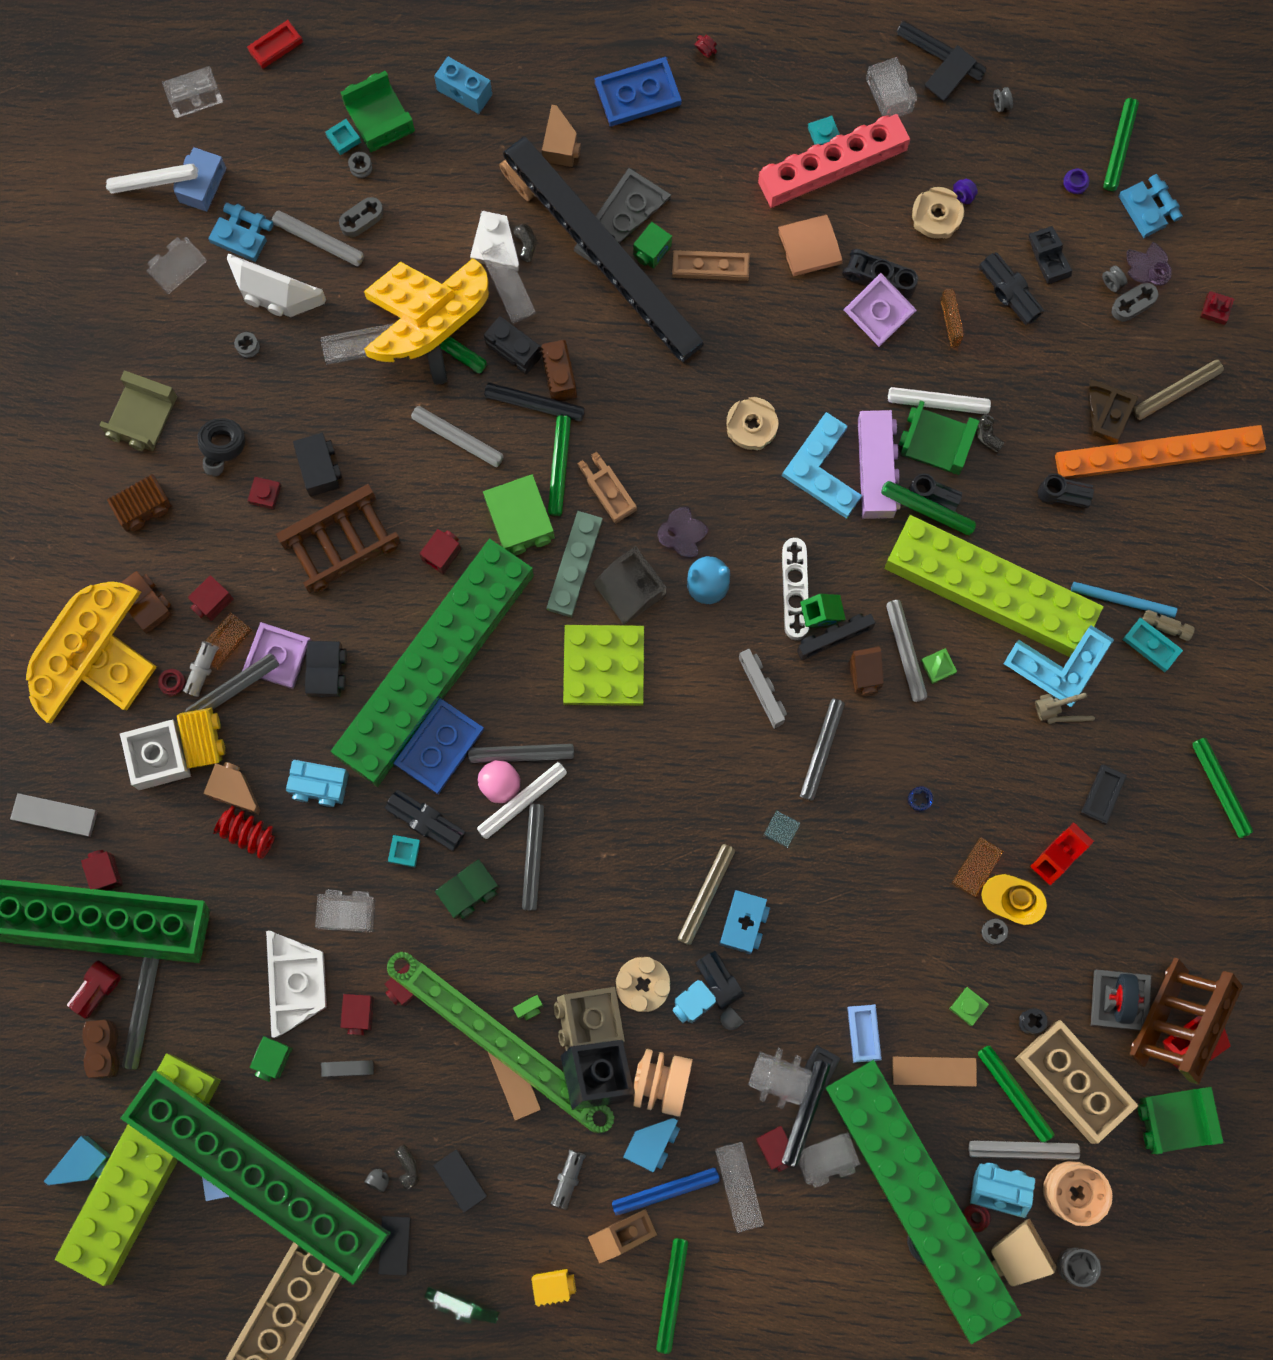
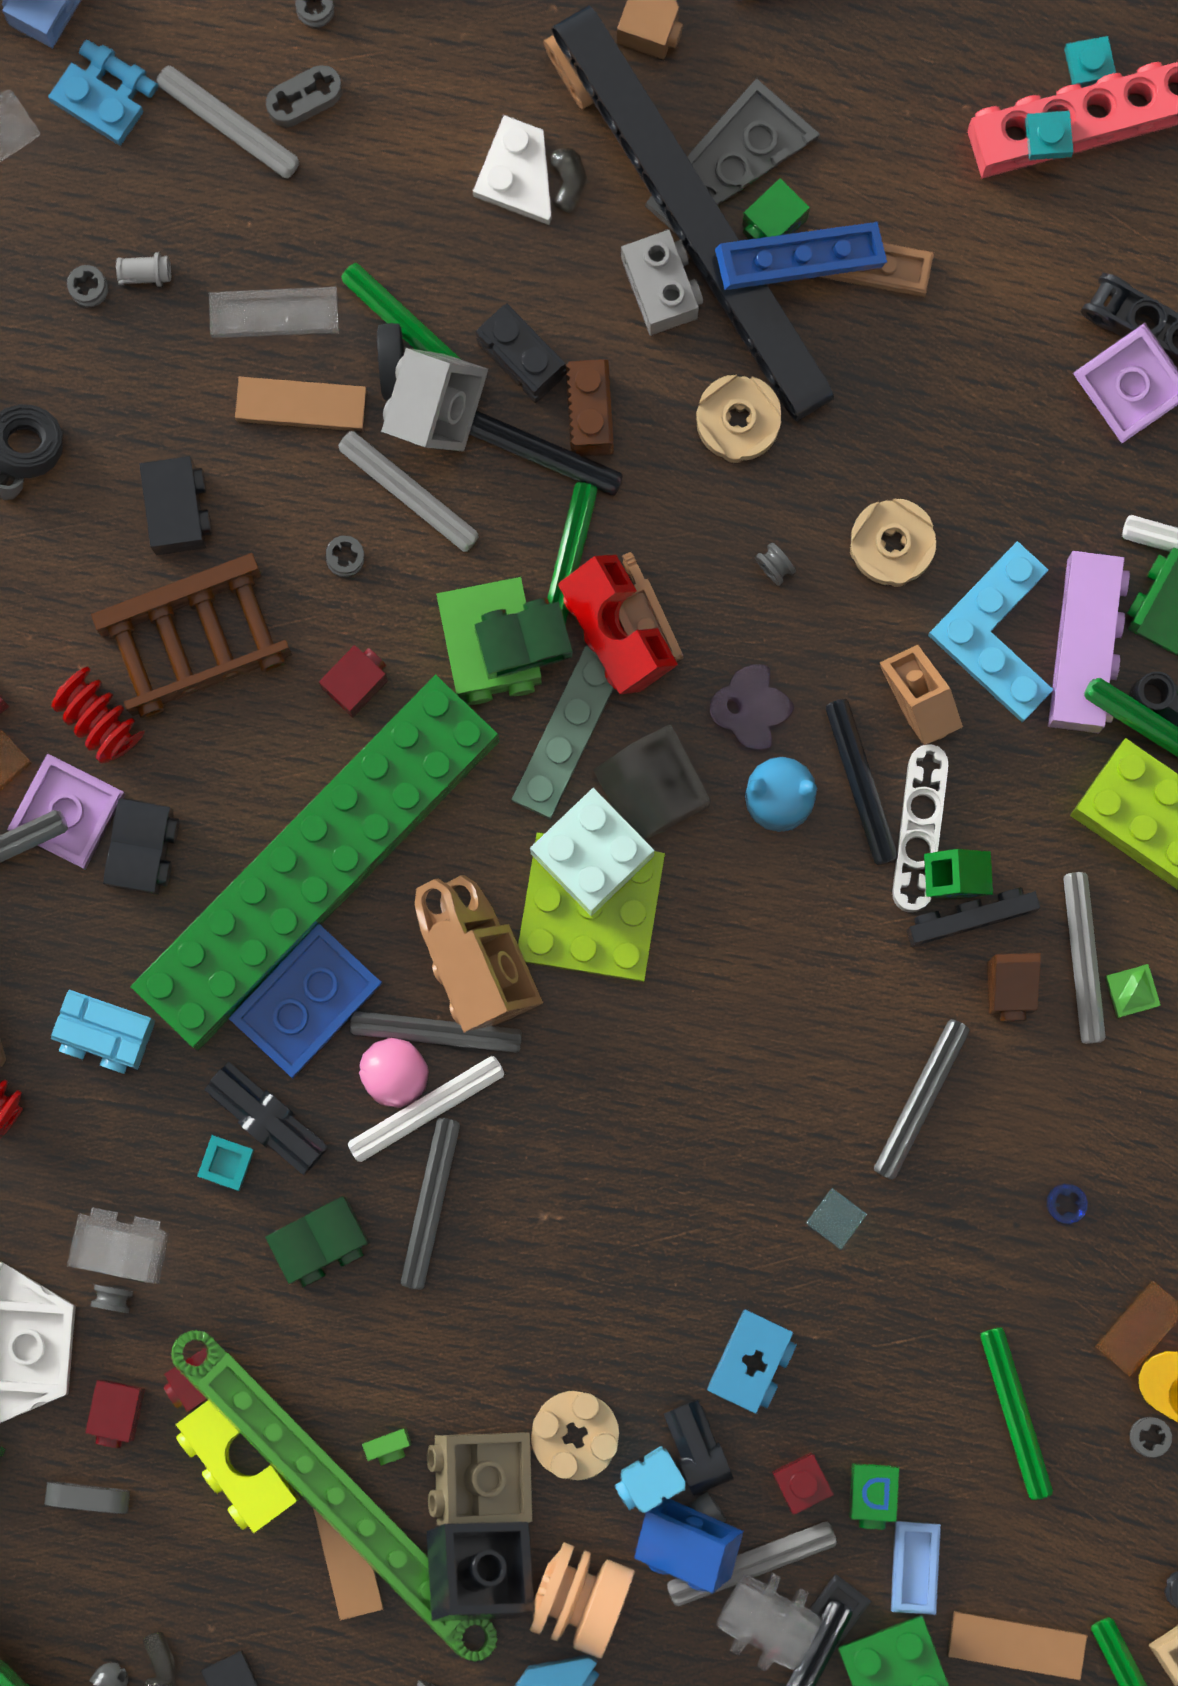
camera: 10 degrees right, 5 degrees up
(264, 493) = (82, 539): dark red plate -> none
(273, 289) = (142, 200): white wedge -> none
(279, 330) = (144, 270): none -> light grey pin
(285, 596) = (94, 717): none -> red piece
(345, 944) = (111, 1298): none -> dark grey bush
(385, 395) = (301, 404): none -> medium nougat tile
(417, 483) = (356, 550): none -> dark grey bush
(425, 308) = (387, 270): yellow plate -> none
(452, 1052) = (254, 1497): none -> neon yellow arch
(464, 377) = (434, 400): none -> light grey brick
(508, 282) = (529, 246): clear plate -> none
(538, 703) = (475, 957): none -> medium nougat brick
(539, 508) = (523, 638): none -> dark green brick
(579, 480) = (595, 598): none -> red arch
(590, 292) = (661, 281): none -> light grey brick
(600, 629) = (592, 851): none -> light aqua brick
(648, 379) = (736, 442): none -> tan plate
(671, 263) = (800, 255): none -> blue plate
(684, 446) = (775, 564): none -> dark grey bush
(706, 894) = (698, 1306): dark tan axle -> none
(723, 1039) = (688, 1545): none -> blue brick
(755, 566) = (861, 782): none -> black axle
(763, 688) = (841, 985): light grey plate -> none
(766, 1045) = (764, 1559): none -> light grey axle
(784, 509) = (922, 694): none -> medium nougat slope
(786, 991) = (802, 1483): none -> dark red brick
(807, 174) = (1049, 135): none -> teal plate
(810, 245) = (1036, 253): nougat slope -> none
(831, 991) = (873, 1494): none -> green brick
(910, 930) = (1016, 1414): none -> green axle
(969, 1006) = (1089, 1550): bright green plate -> none

